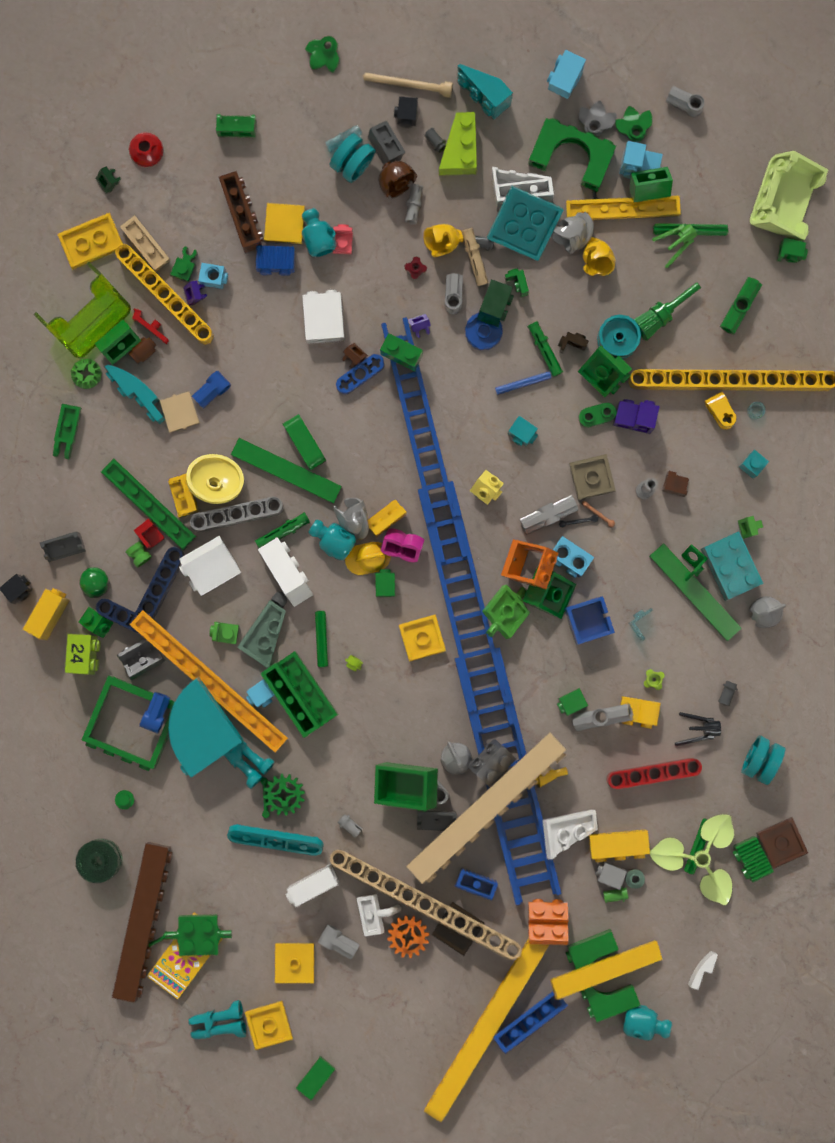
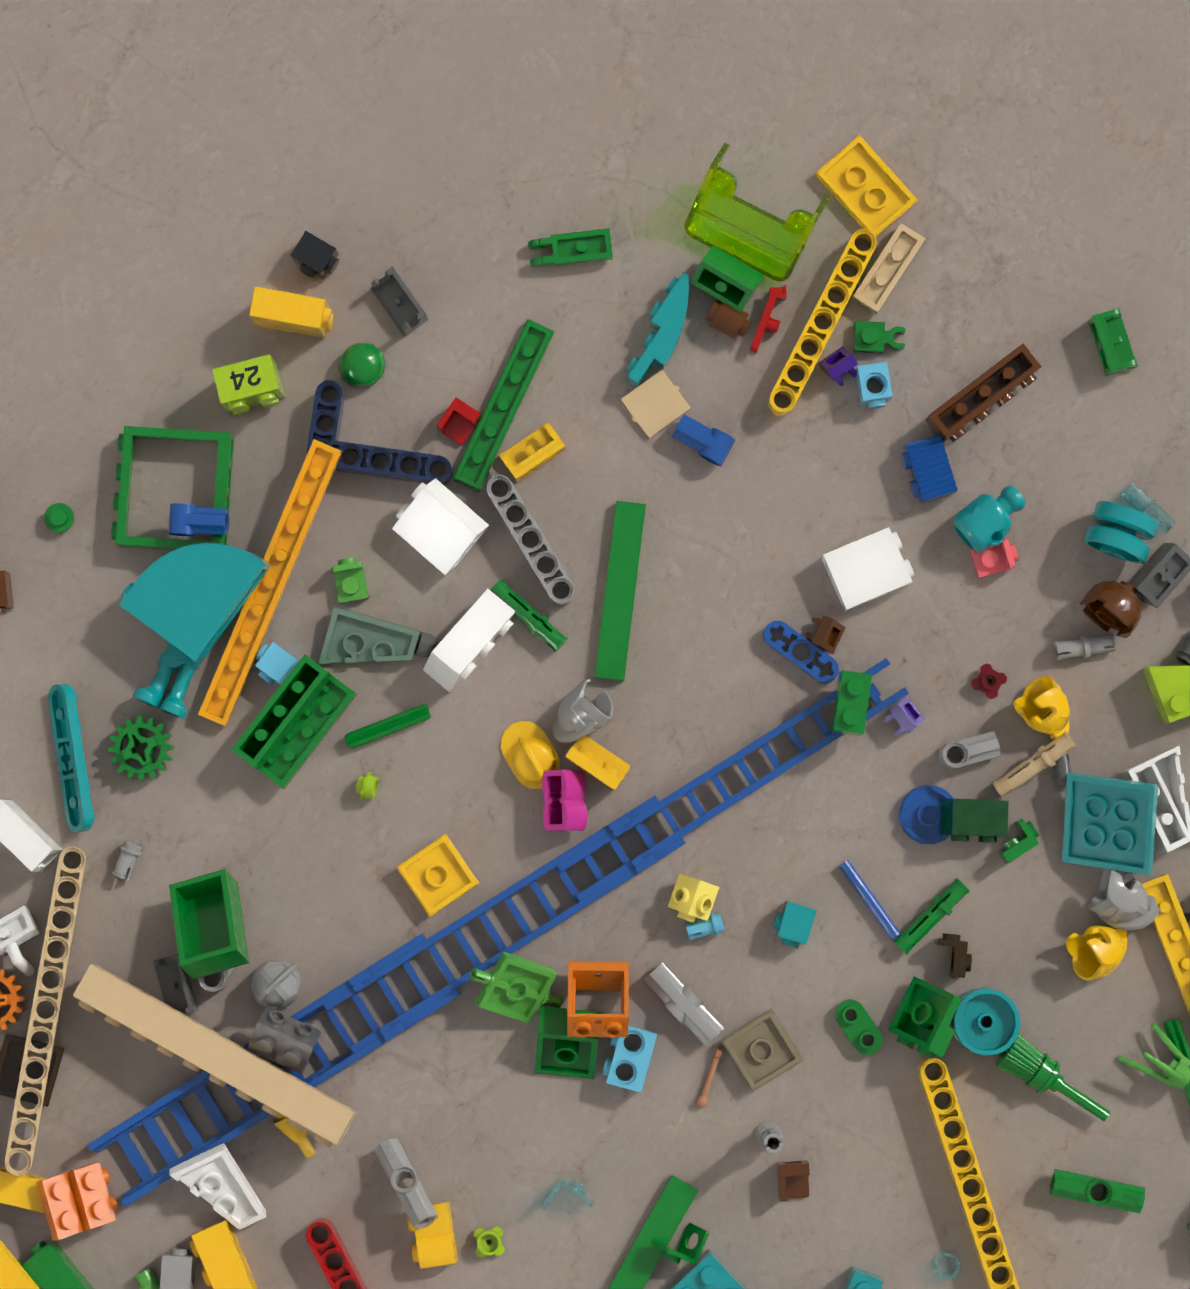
camera: 70 degrees right, 0 degrees up
(90, 380) = (656, 257): bright green gear -> none
(95, 622) = (302, 387): green bracket -> none
(106, 179) = (964, 179): dark green tile -> none
(139, 554) = (425, 414): bright green wheel -> none
(140, 658) = (271, 471): flat silver bracket -> none
(147, 158) = (1024, 234): red piece -> none
(215, 471) = (584, 487): light yellow dish -> none
(266, 813) = (105, 730): green hinge -> none
(284, 223) = (989, 463): yellow tile -> none
(304, 442) = (671, 603): green beam -> none
(334, 539) = (540, 695): teal piece -> none
(385, 583) = (499, 793): green brick -> none
(476, 884) = (100, 1075): blue brick -> none
(507, 487) = (703, 928): none -> medium azure pin
(571, 702) = (414, 1129): green brick -> none
(588, 621) = (543, 1115): blue piece -> none
(594, 518) = (701, 1073): black hinge -> none
(636, 417) = (874, 1088): dark purple brick -> none
(719, 407) = (932, 1208): yellow piece -> none

